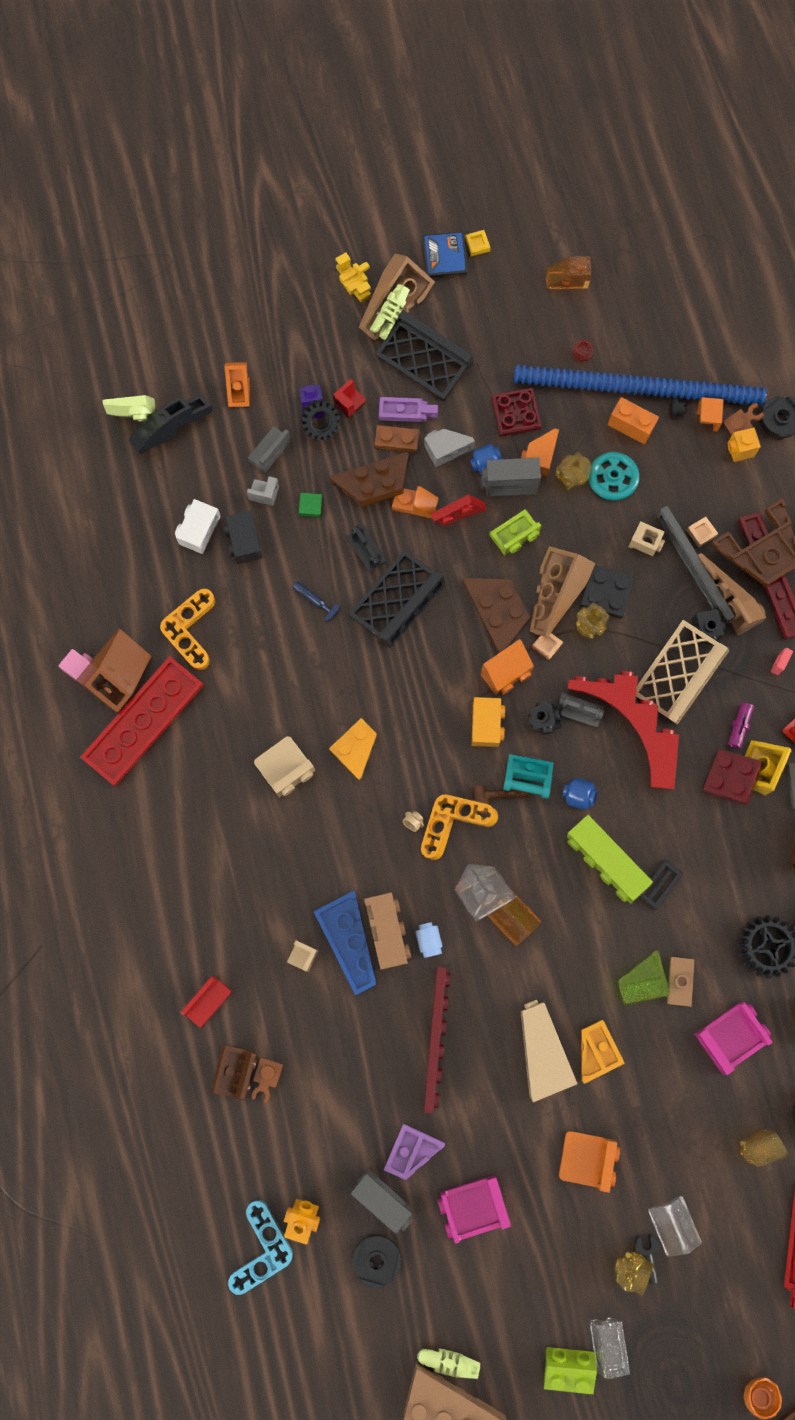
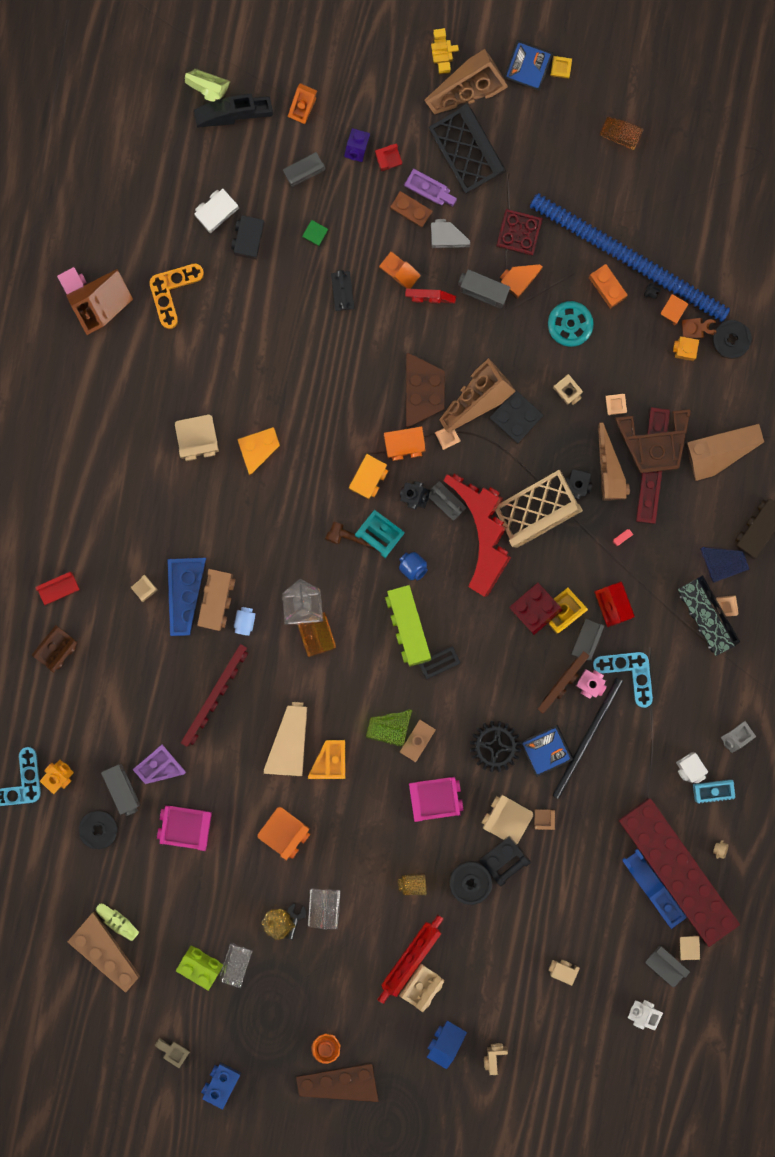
camera: 20 degrees right, 10 degrees up
(142, 721) = (103, 349): red plate -> none
(263, 491) = (282, 203): light grey panel -> none
(267, 1075) = (78, 663): dark orange plate -> none
(316, 600) = (283, 315): dark blue piece -> none
(329, 429) = (350, 176): black tyre -> none
(375, 480) = (375, 238): reddish brown wing -> none
(390, 311) = (456, 99): yellowish green hinge -> none
(413, 606) = (351, 359): black fence -> none
(413, 821) = (275, 526): tan plate -> none
(447, 816) = (303, 535): light orange beam -> none
(483, 454) = (474, 261): blue head -> none
(515, 532) = (467, 334): lime bracket -> none
(574, 470) = (536, 312): clear yellow brick -> none
(583, 350) = (600, 205): clear red plate -> none
(594, 614) = (493, 429): clear yellow brick -> none
(694, 564) = (595, 429): dark grey tile -> none
(741, 725) = (554, 582): magenta pin -> none

